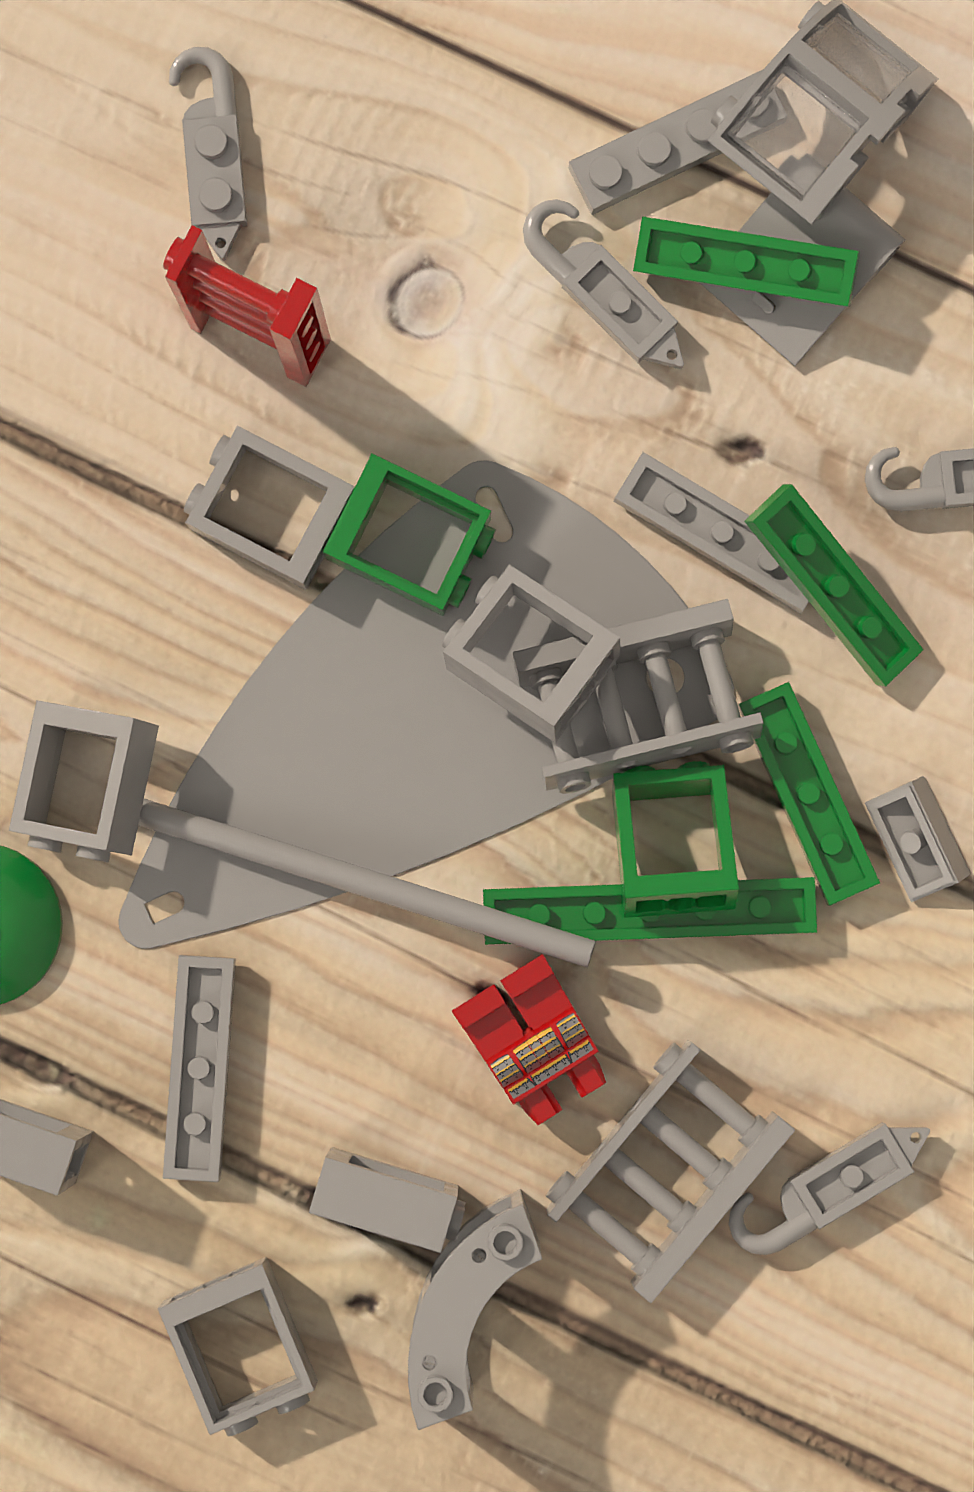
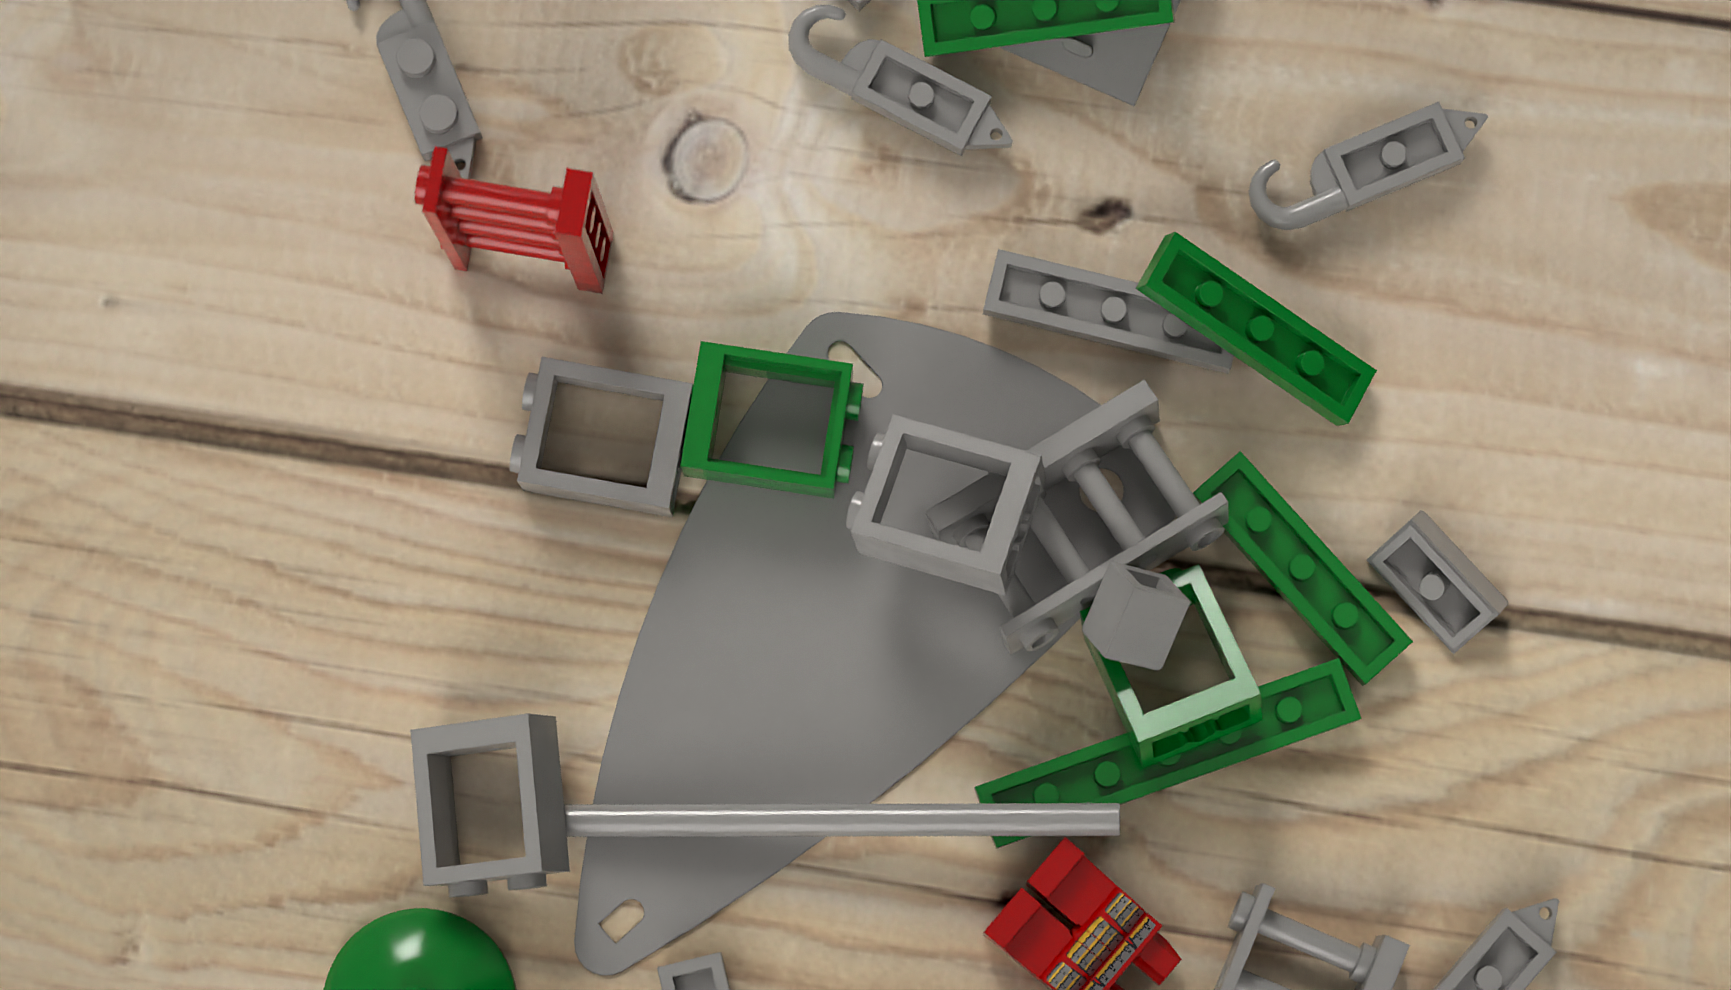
camera: 15 degrees left, 5 degrees down
(656, 793) = (1135, 616): none -> light grey panel

